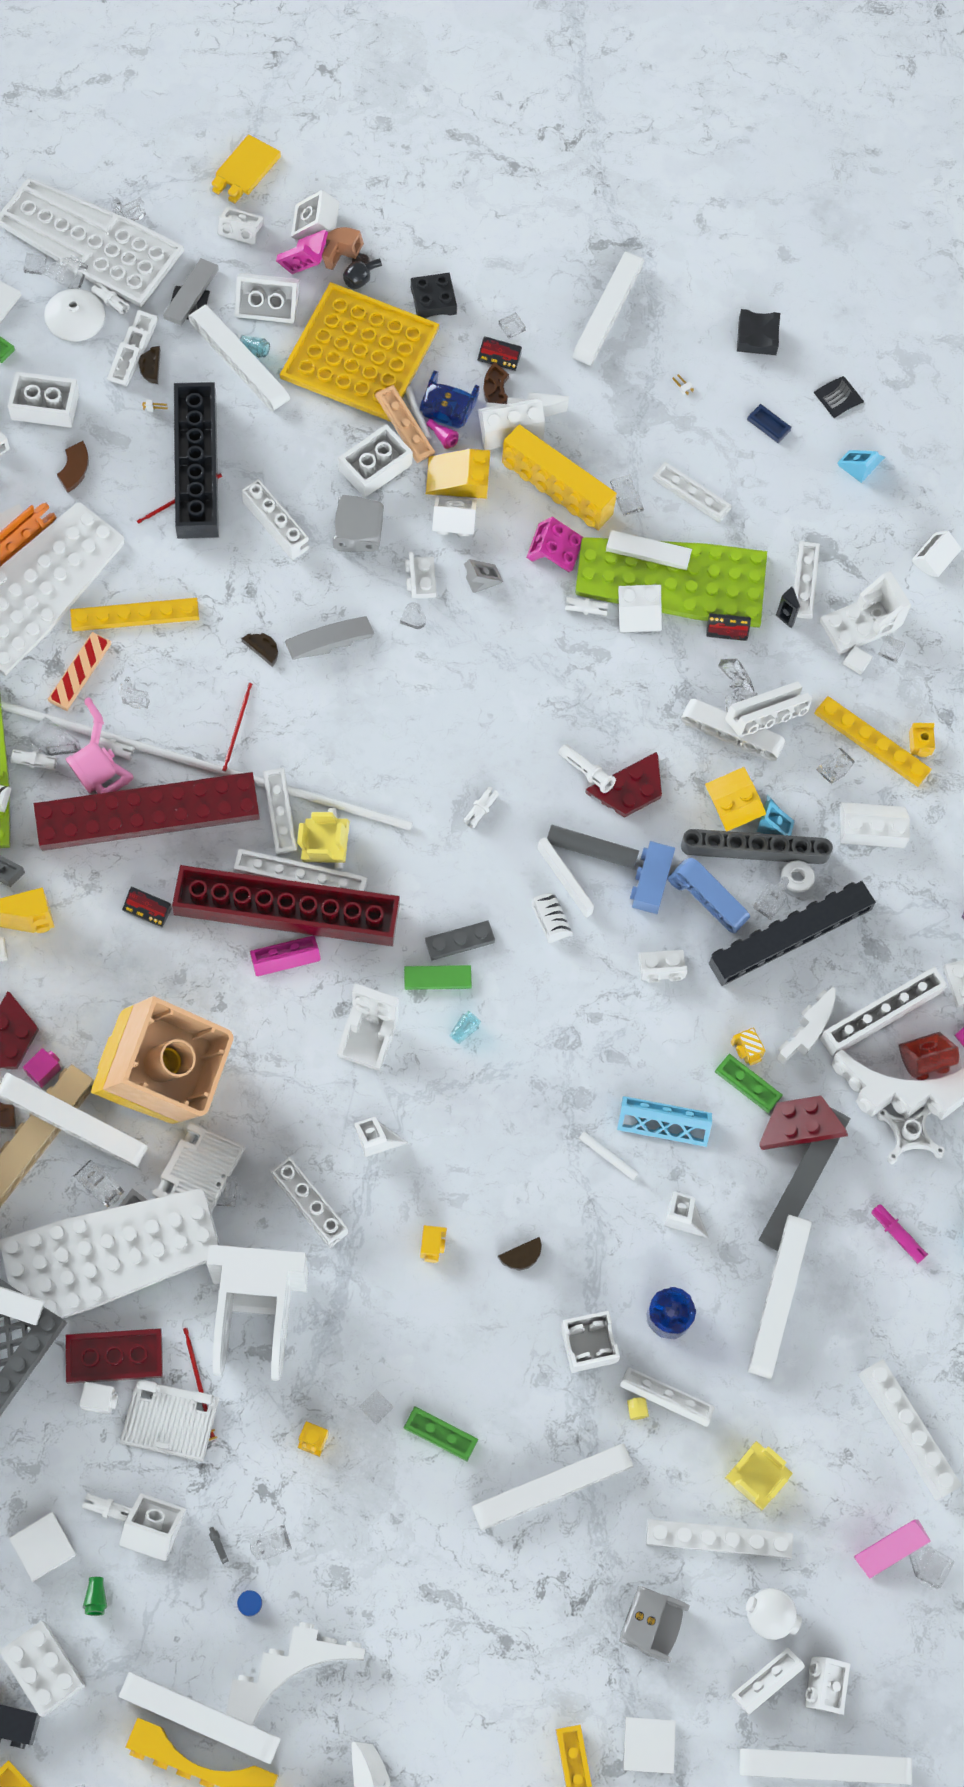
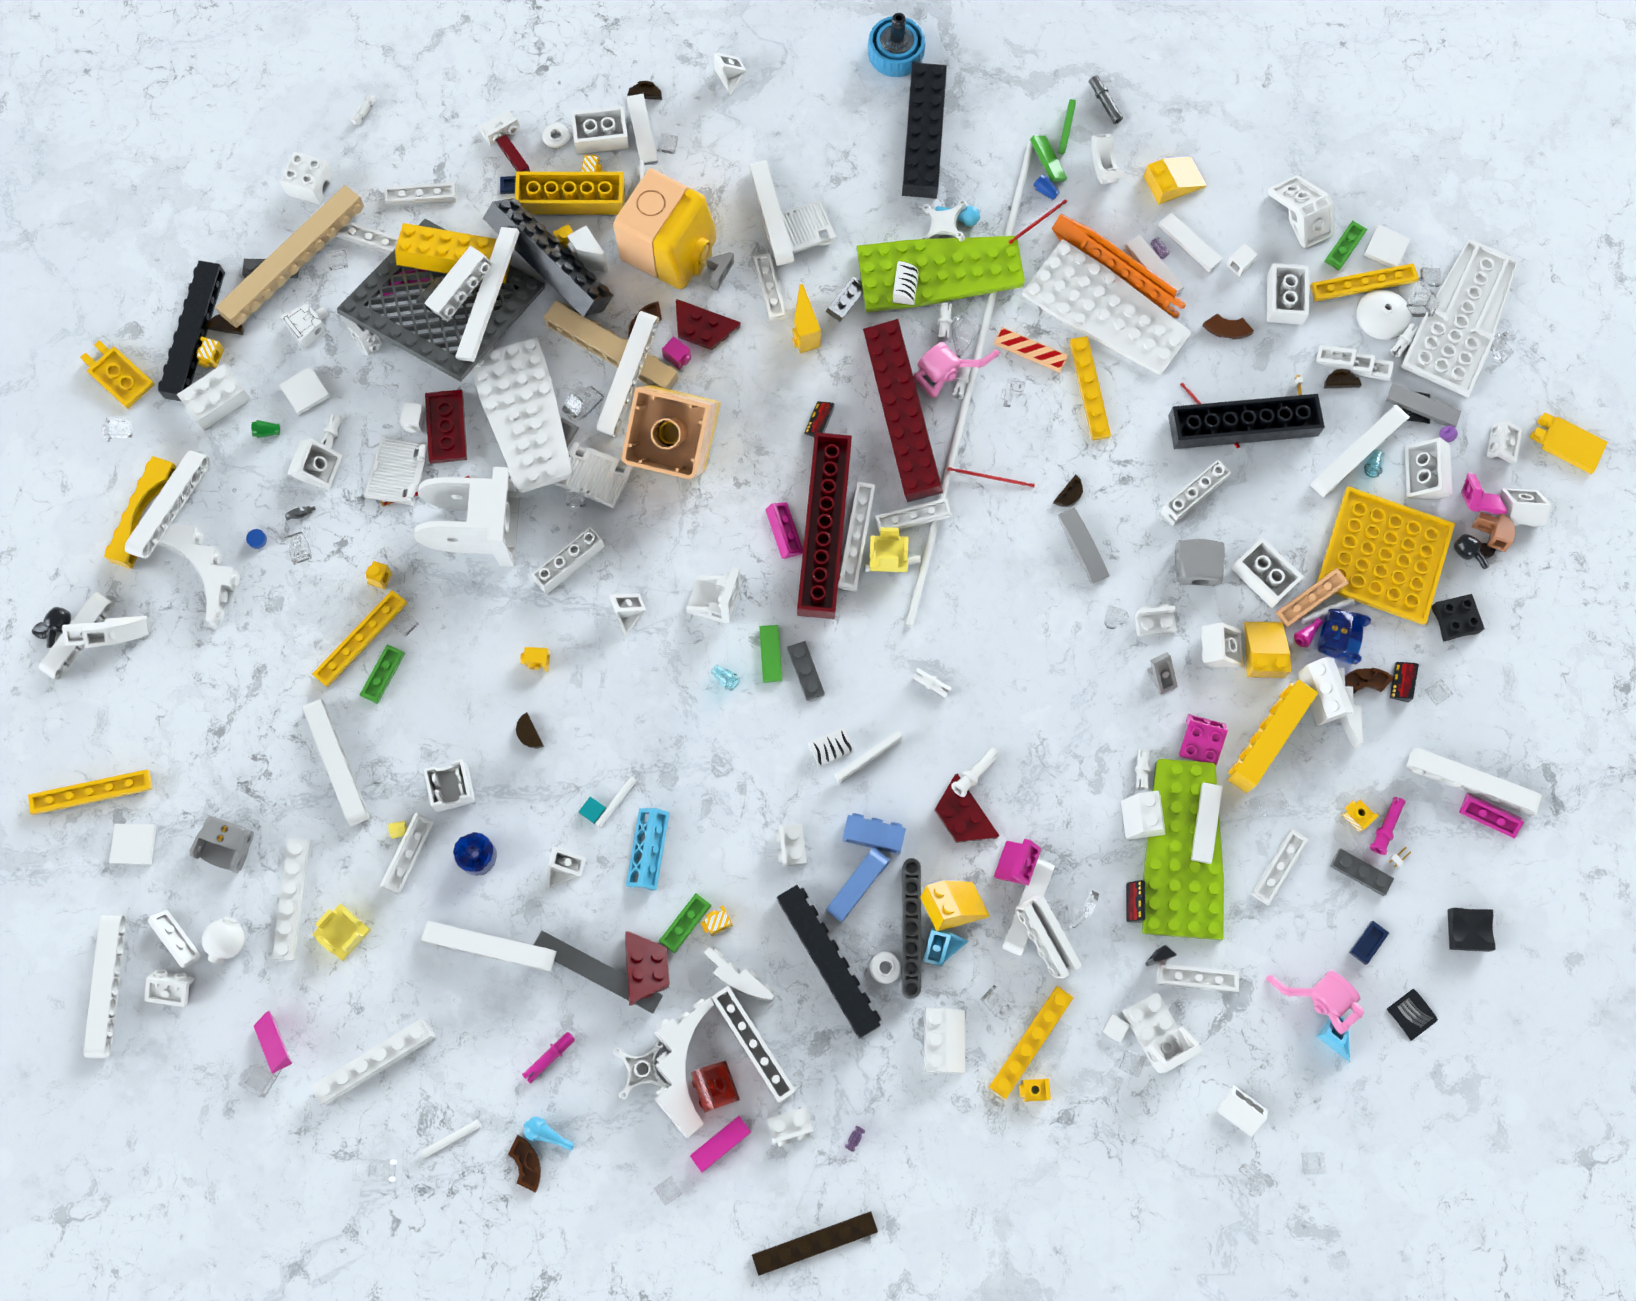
camera: 90 degrees right, 5 degrees up
(35, 324) = (1364, 282): none -> yellow plate
(227, 274) = (1448, 433): none -> medium lavender piece
(395, 1461) = (359, 638): none -> yellow plate
(592, 846) = (900, 780): dark grey piece -> none
(618, 1182) = (592, 810): none -> teal tile
(641, 299) = (1491, 815): none -> dark pink slope
(641, 412) = (1357, 821): none -> yellow brick
(660, 393) = (1384, 834): none -> dark pink pin
(687, 734) = (1018, 862): none -> dark pink bracket
(698, 420) = (1362, 872): none -> dark grey plate
(827, 460) = (1330, 996): none -> bright pink piece

